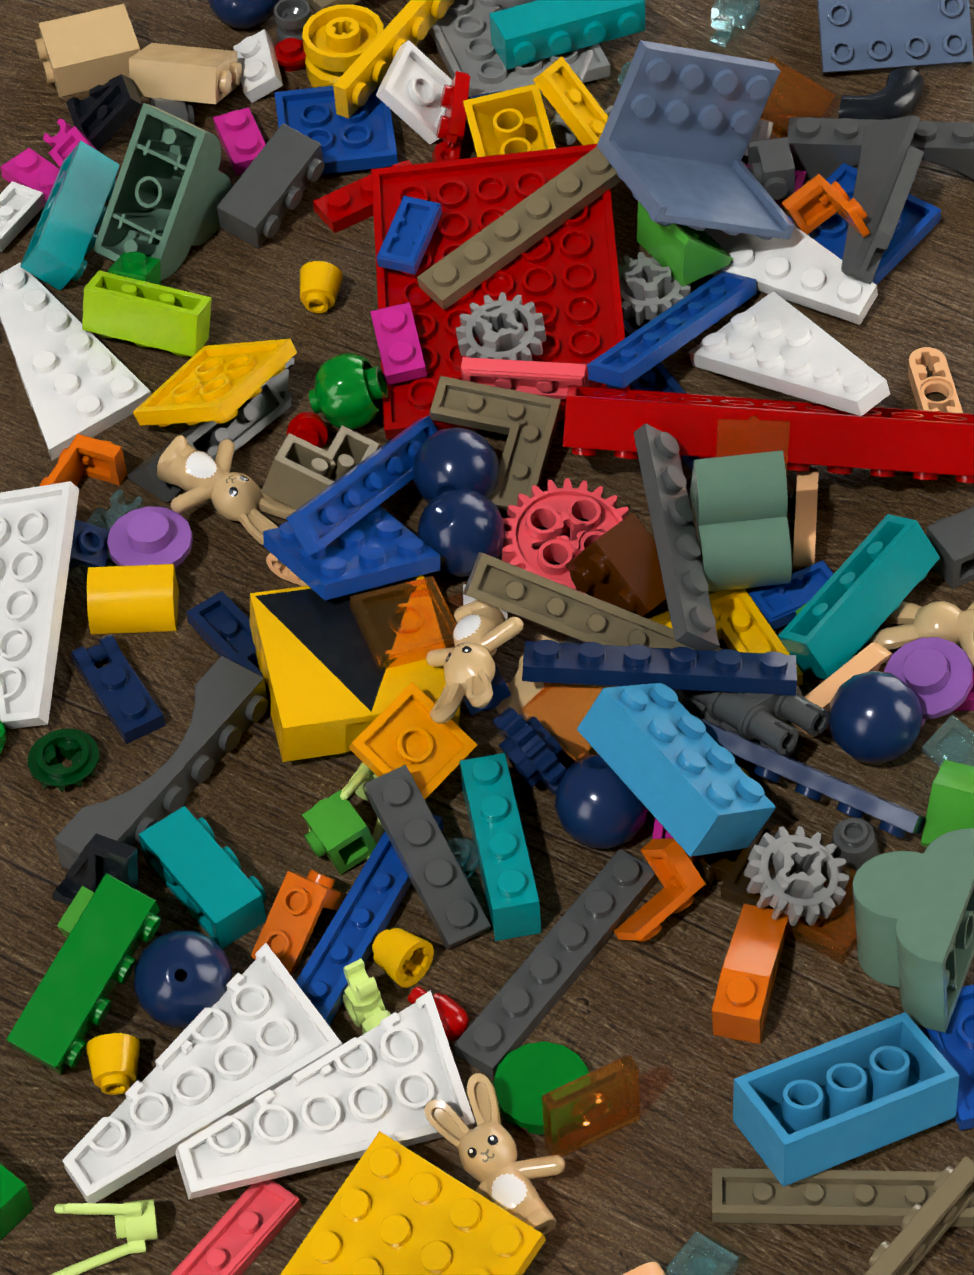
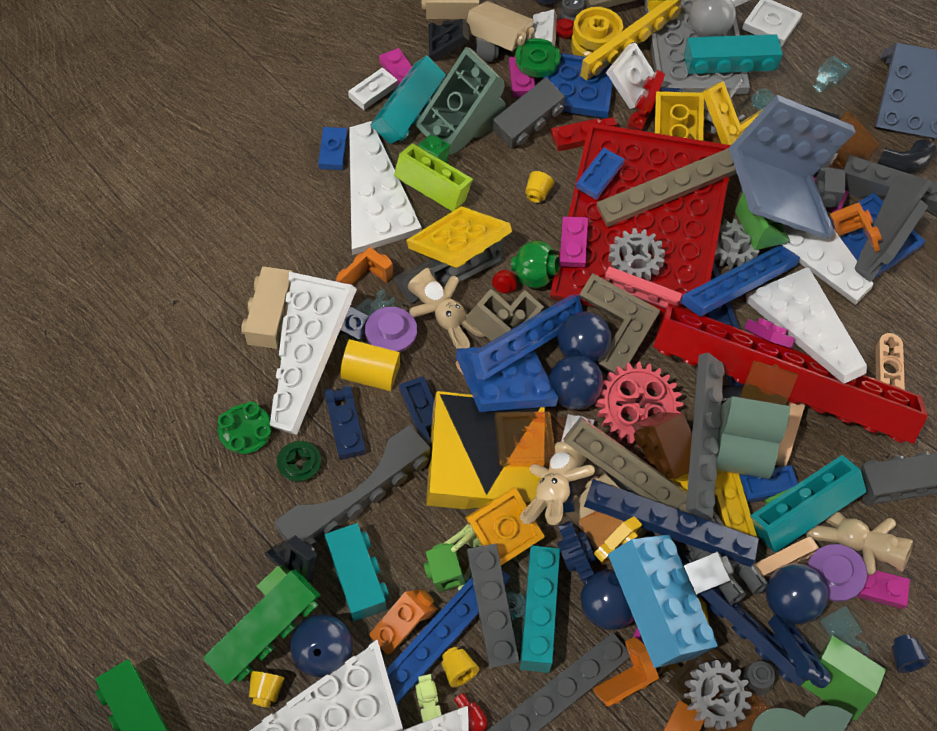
camera: 10 degrees right, 10 degrees up
(65, 141) = (421, 50): dark pink plate -> none
(259, 104) = (537, 58): none -> green tile
(586, 694) = (620, 536): none -> yellow plate
(733, 711) = (709, 572): none -> brick
(739, 385) = (770, 332): none -> dark pink plate
(899, 789) = (799, 652): none -> dark blue plate

